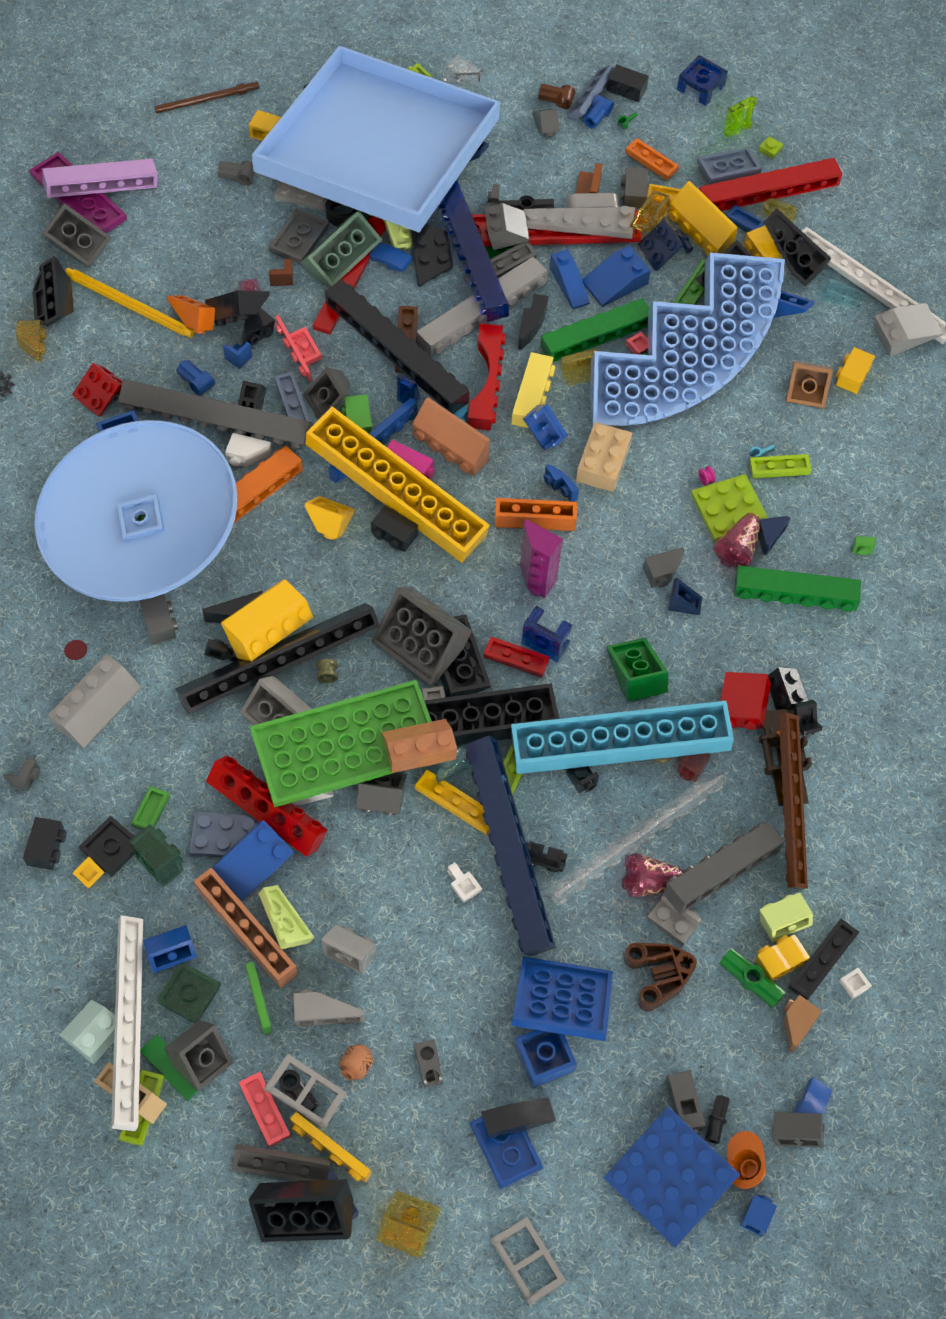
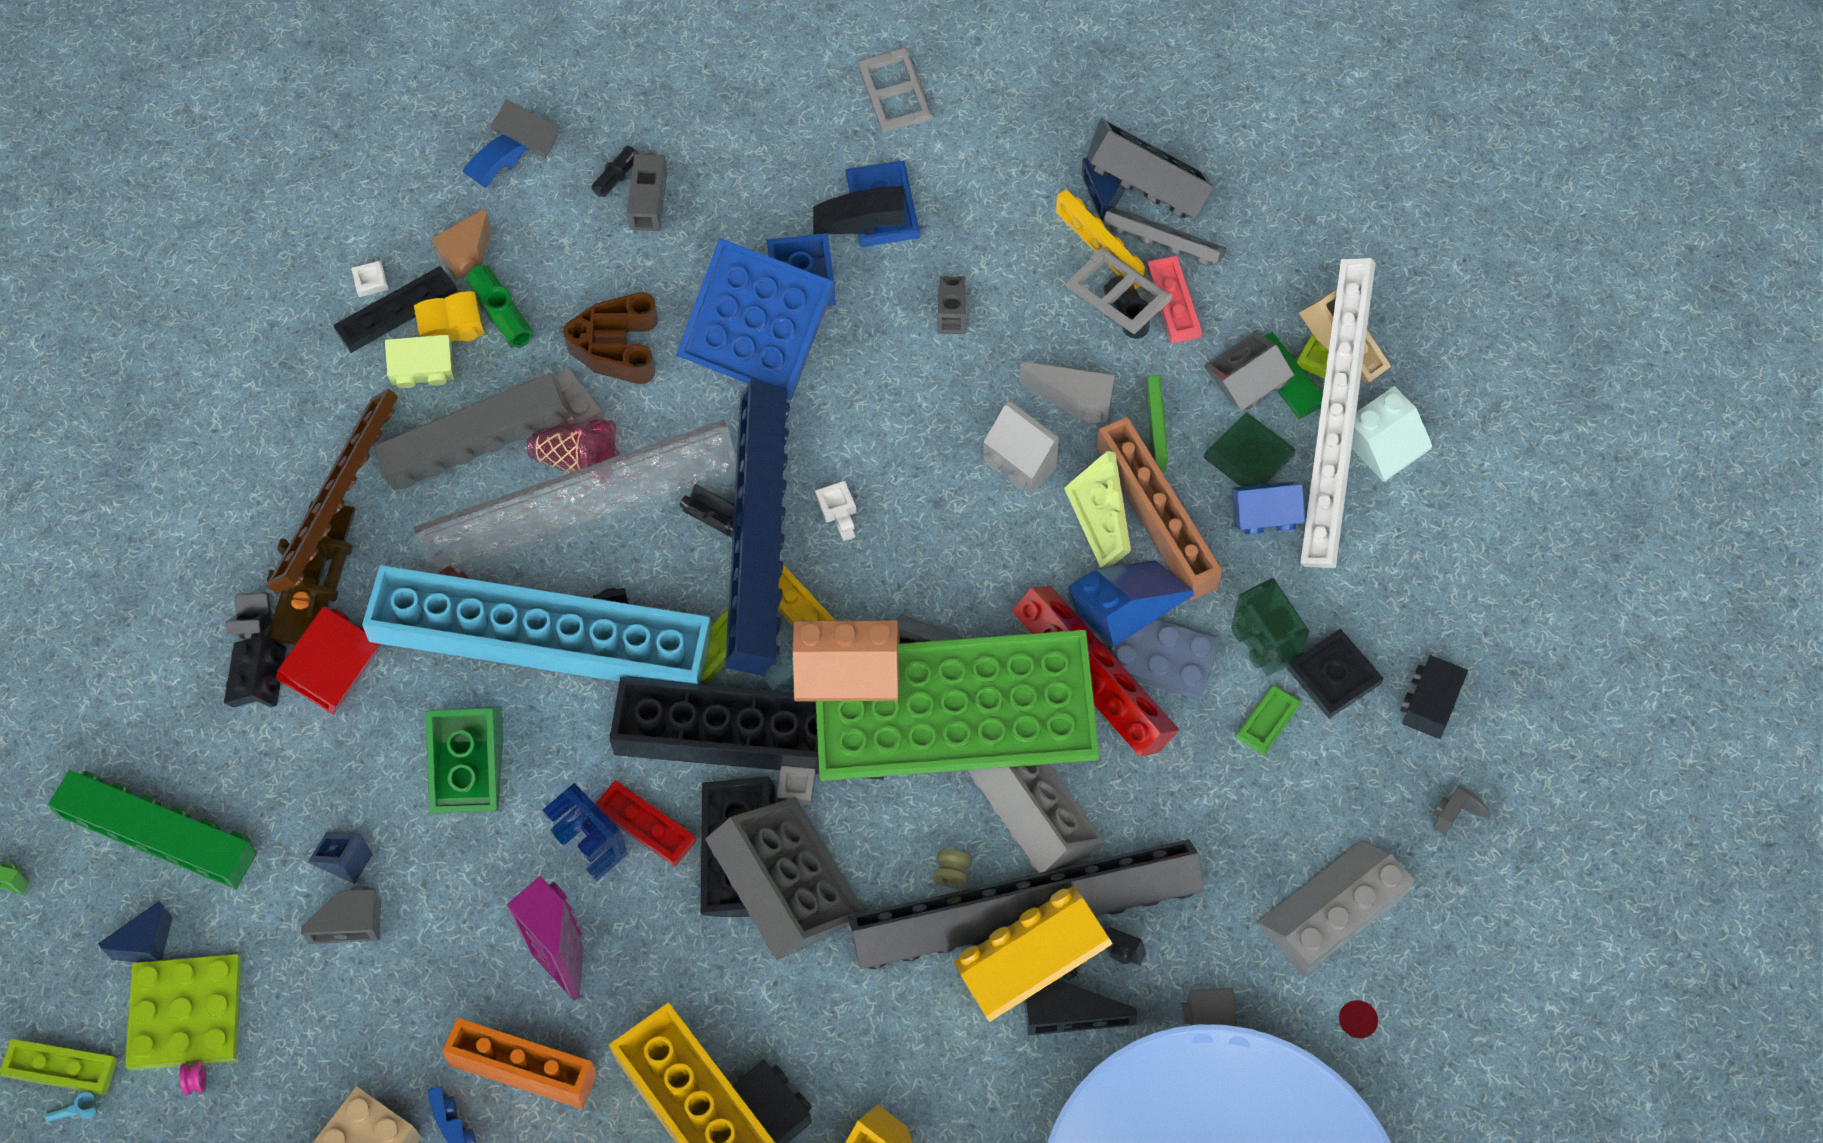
camera: 160 degrees left, 0 degrees up
(88, 872) = (1372, 640): yellow plate -> none
(356, 1062) = (1044, 322): nougat head -> none
(408, 1224) = (1023, 146): clear yellow slope -> none
(671, 1176) = (696, 120): blue plate -> none
(739, 542) = (201, 922): clear pink cone -> none
(747, 1157) = (602, 112): orange piece -> none
(758, 1214) = (612, 68): blue brick -> none

